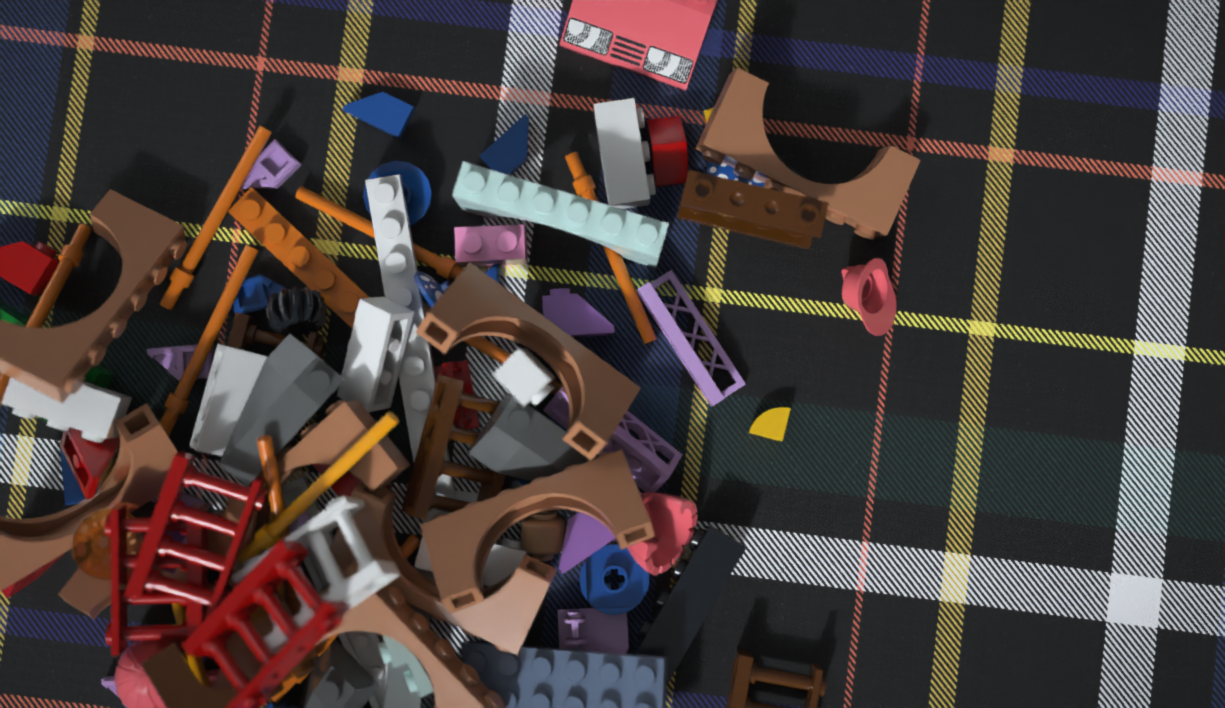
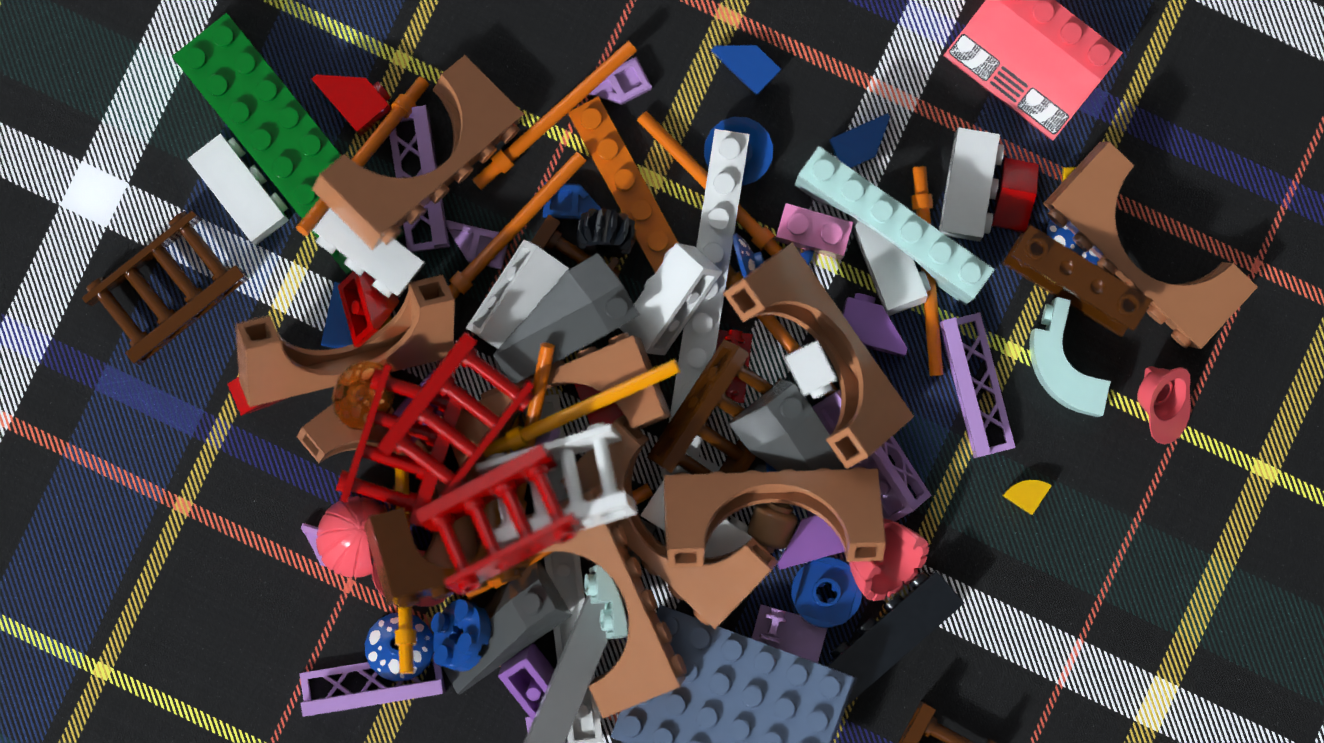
camera: 20 degrees right, 0 degrees up
(131, 341) = (428, 163): none -> lavender fence
(576, 258) = (891, 271): none -> white brick
(760, 303) = (1055, 373): none -> light aqua arch

